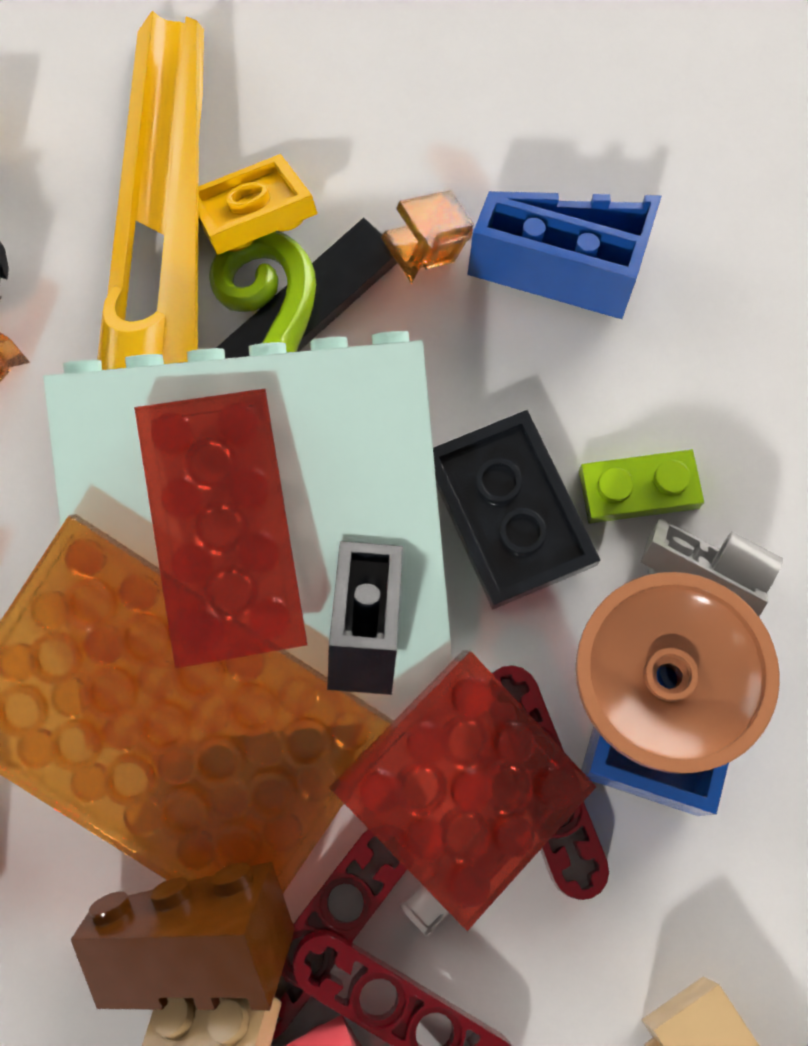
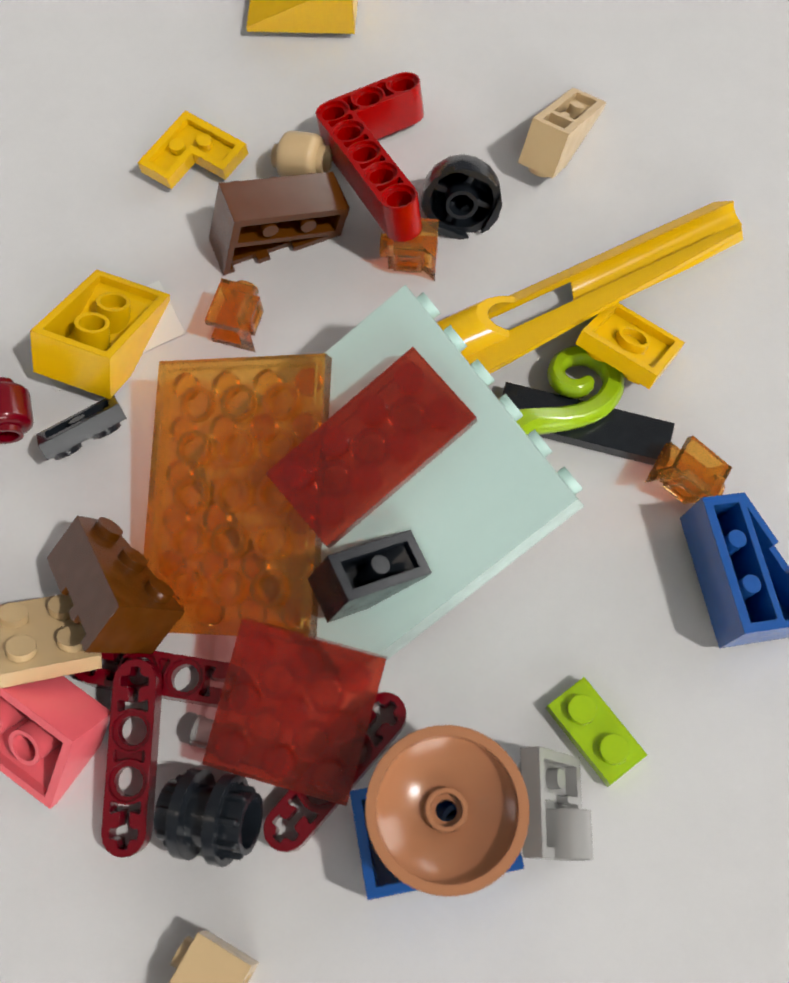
camera: 60 degrees right, 5 degrees down
(511, 509) = (518, 643): black plate -> none
(526, 955) = (208, 816): none -> black piece

